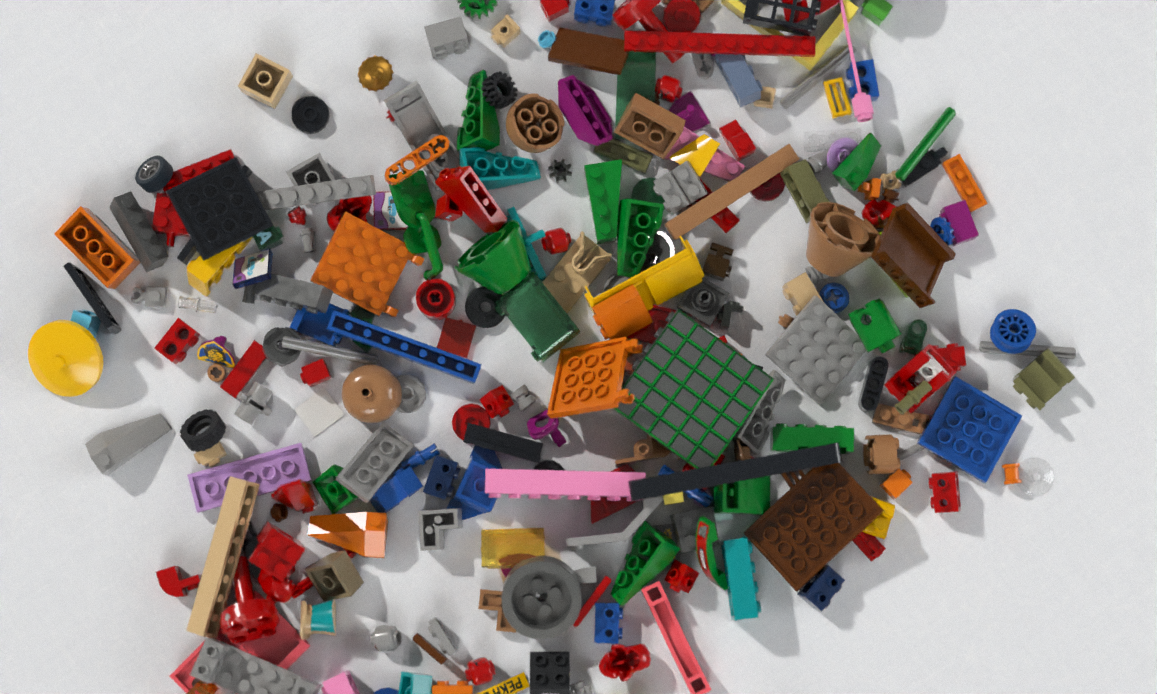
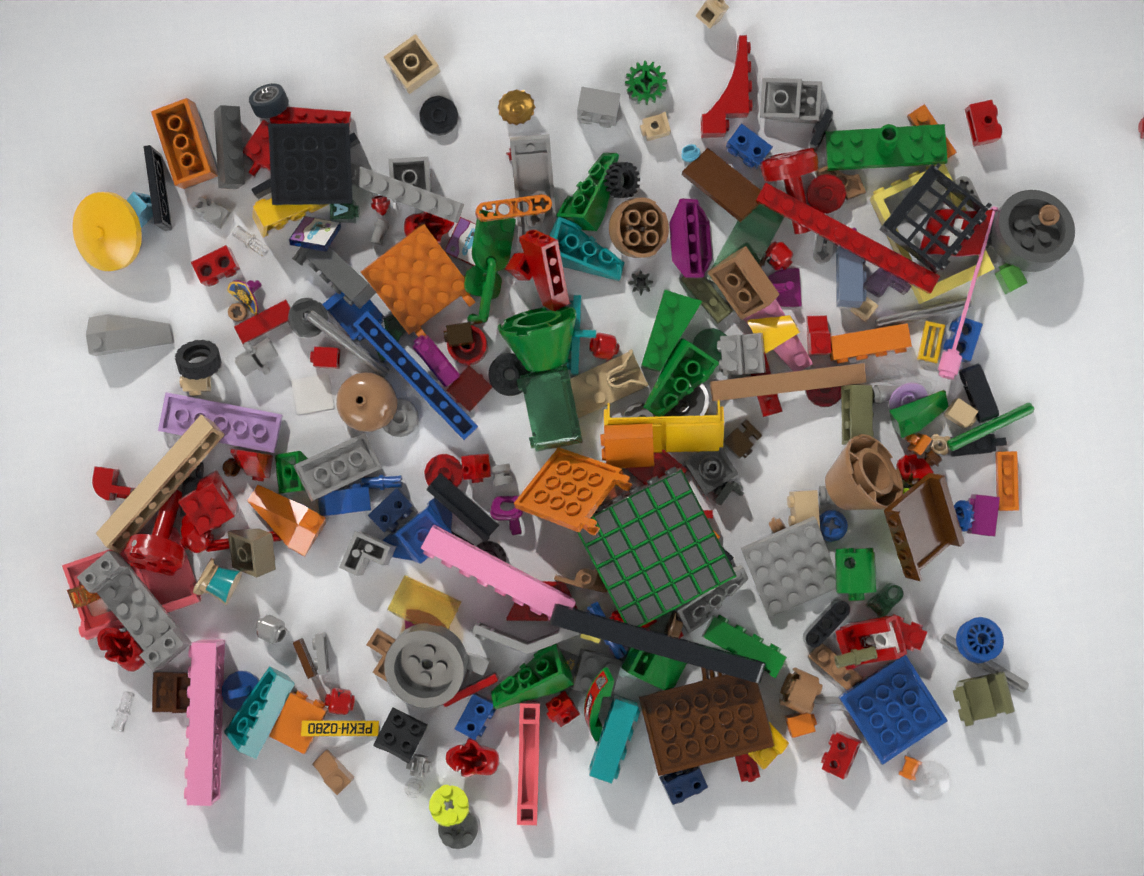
camera: 30 degrees right, 5 degrees up
(414, 326) = (435, 360): none -> magenta piece
(424, 291) = (458, 334): none -> dark brown brick
(767, 65) = (881, 279): none -> clear purple brick
(785, 123) = (870, 342): none -> orange brick
(894, 145) = (961, 413): none -> tan brick
(901, 120) = (979, 392): none -> black beam

